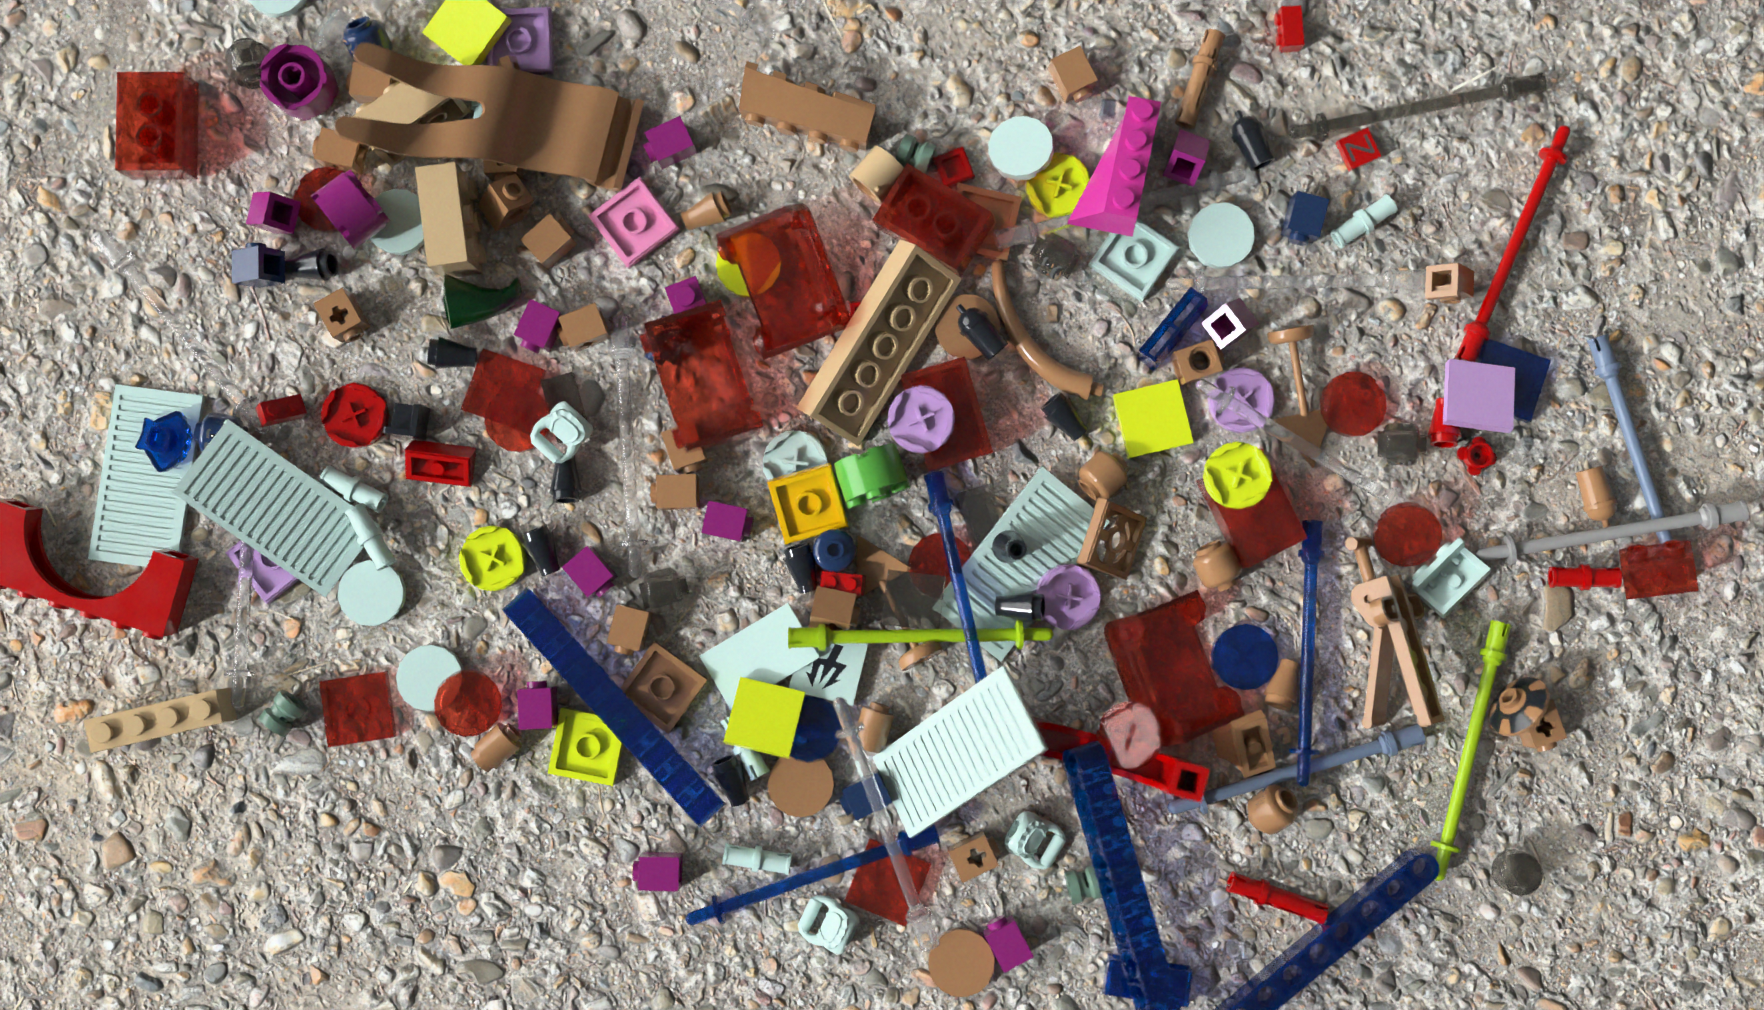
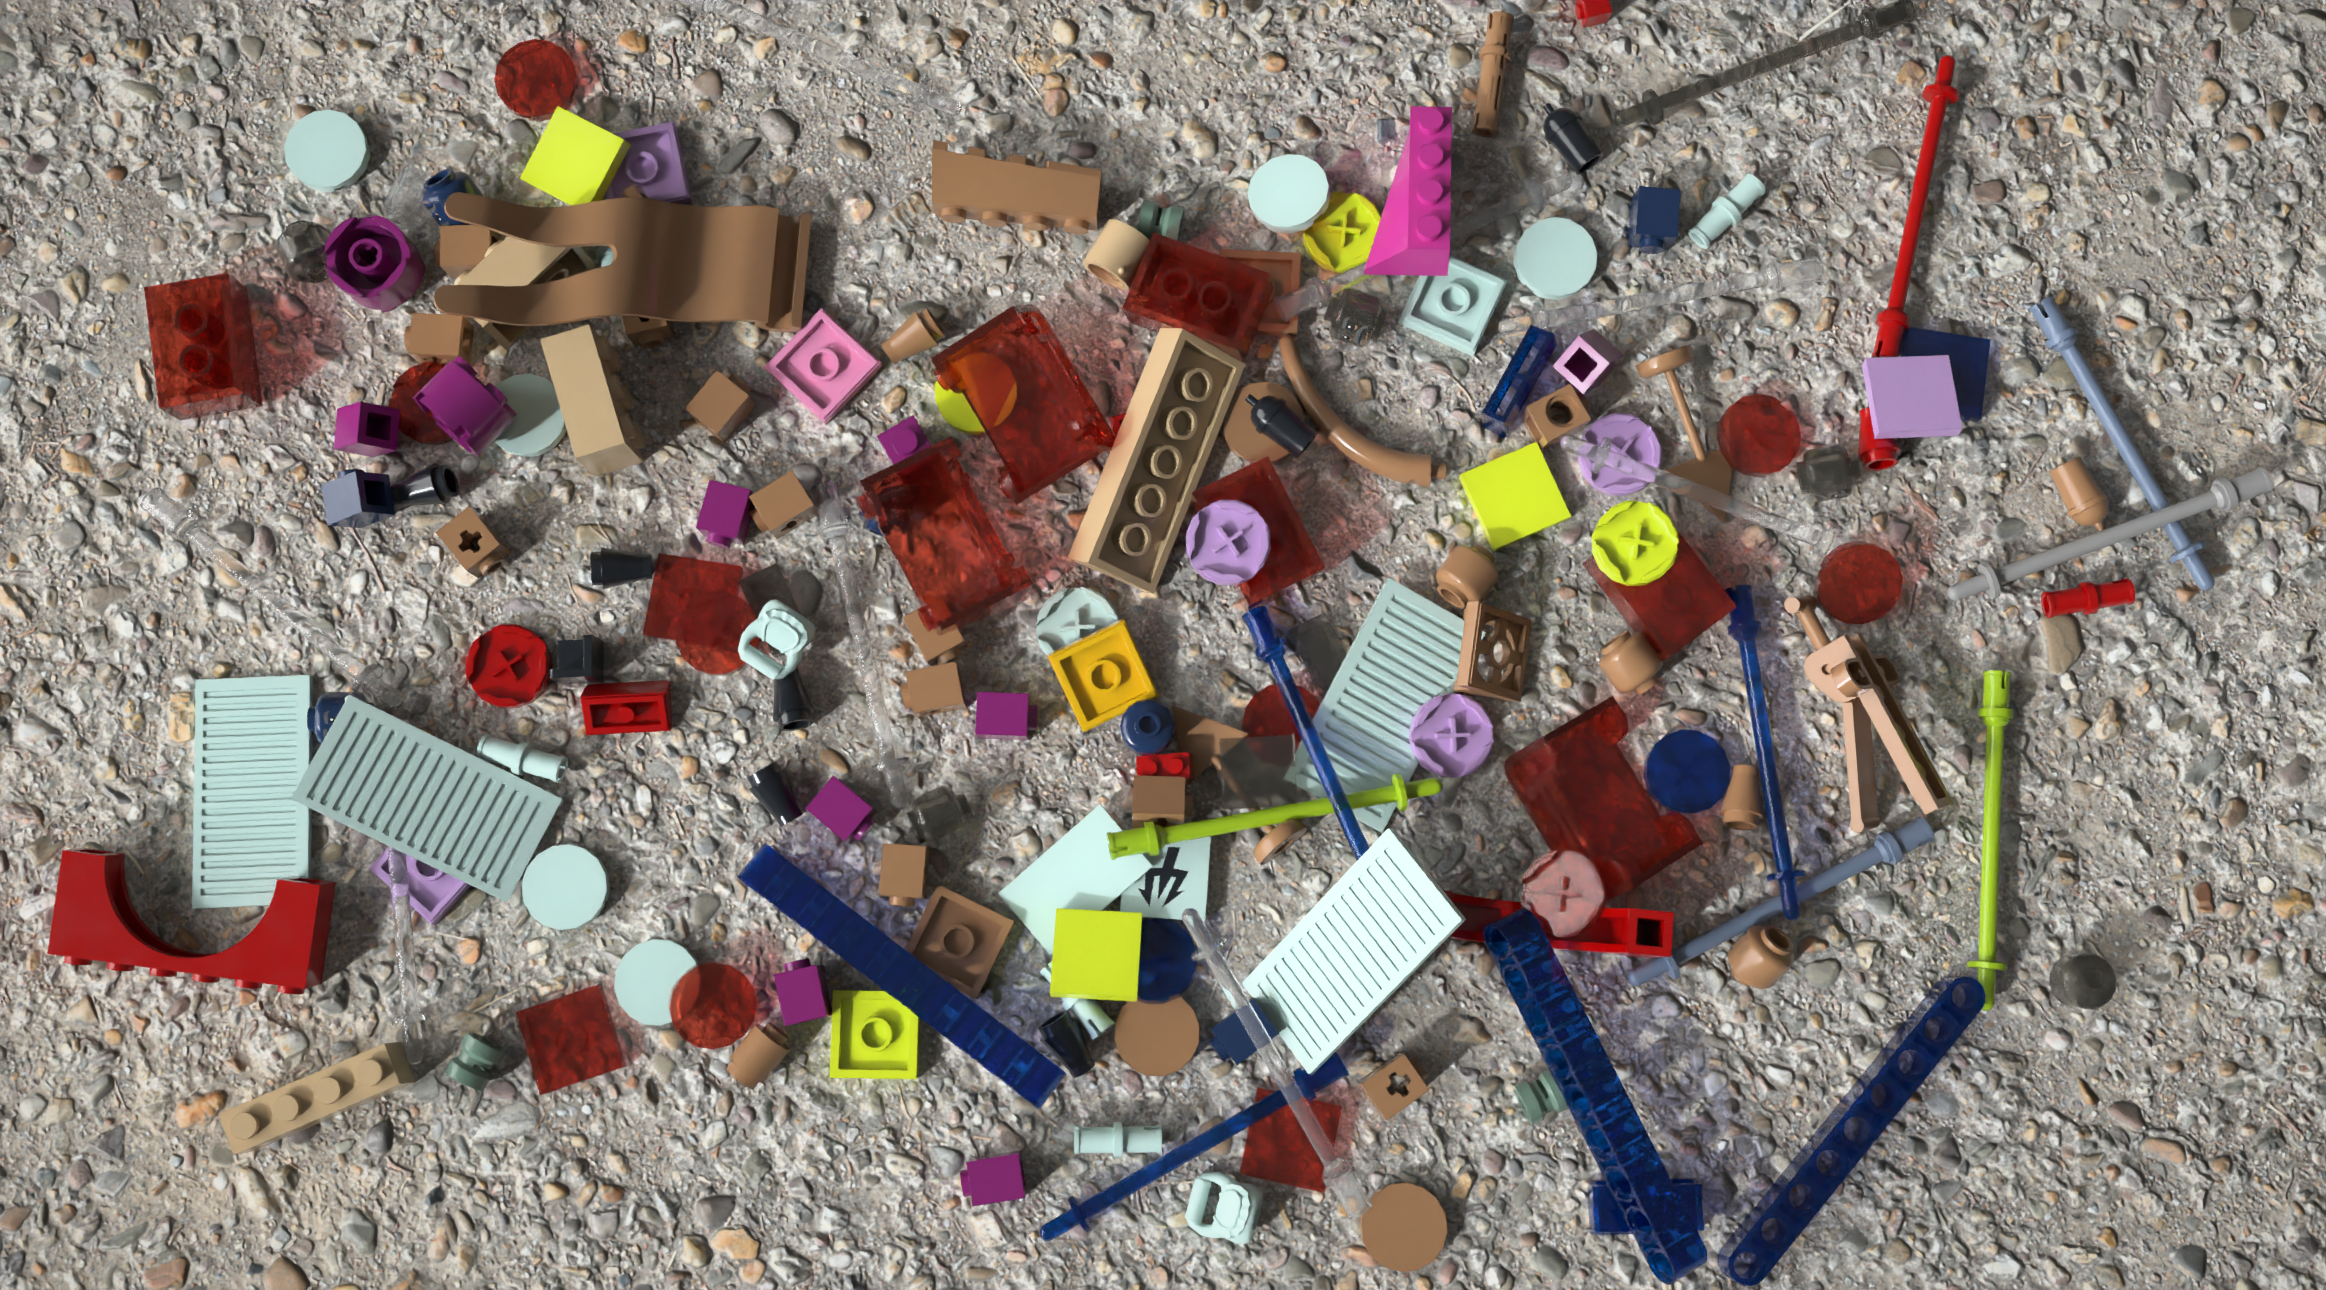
camera: 15 degrees left, 5 degrees down
(166, 440) = (271, 738): clear blue animal -> none
(281, 410) = (414, 674): red piece -> none
(370, 536) = (553, 814): light aqua pin -> none
(470, 303) = (634, 499): dark green hat -> none
(492, 558) = (714, 816): neon yellow tile -> none
(505, 202) = (658, 366): medium nougat brick -> none
(669, 143) = (852, 260): magenta brick -> none
(801, 566) = (1109, 756): black cone -> none
(871, 475) = (1177, 624): bright green brick -> none
(877, 726) = (1241, 939): medium nougat brick -> none
(954, 167) = (1210, 230): red tile -> none
(1002, 544) = (1358, 684): black cone -> none
(1007, 942) = (1458, 1188): magenta brick -> none
(1021, 606) = (1397, 756): black cone -> none
(1026, 836) = (1456, 1049): light aqua piece -> none
(1063, 414) = (1404, 511): black cone -> none
(1073, 75) = (1336, 95): medium nougat brick -> none
(1186, 158) = (1495, 170): magenta brick -> none
(1246, 744) = (1711, 879): medium nougat slope -> none
(1264, 893) = (1778, 1067): red pin -> none
(1358, 149) = (1702, 126): red tile -> none
(1449, 283) = (1847, 266): medium nougat brick -> none
(1449, 577) = (1921, 627): light aqua bracket -> none
(1485, 452) = (1934, 467): red plate -> none
(1519, 706) = (2041, 771): dish -> none
(1549, 732) = (2059, 779): medium nougat brick -> none
(1658, 569) = (2177, 571): clear red bracket -> none

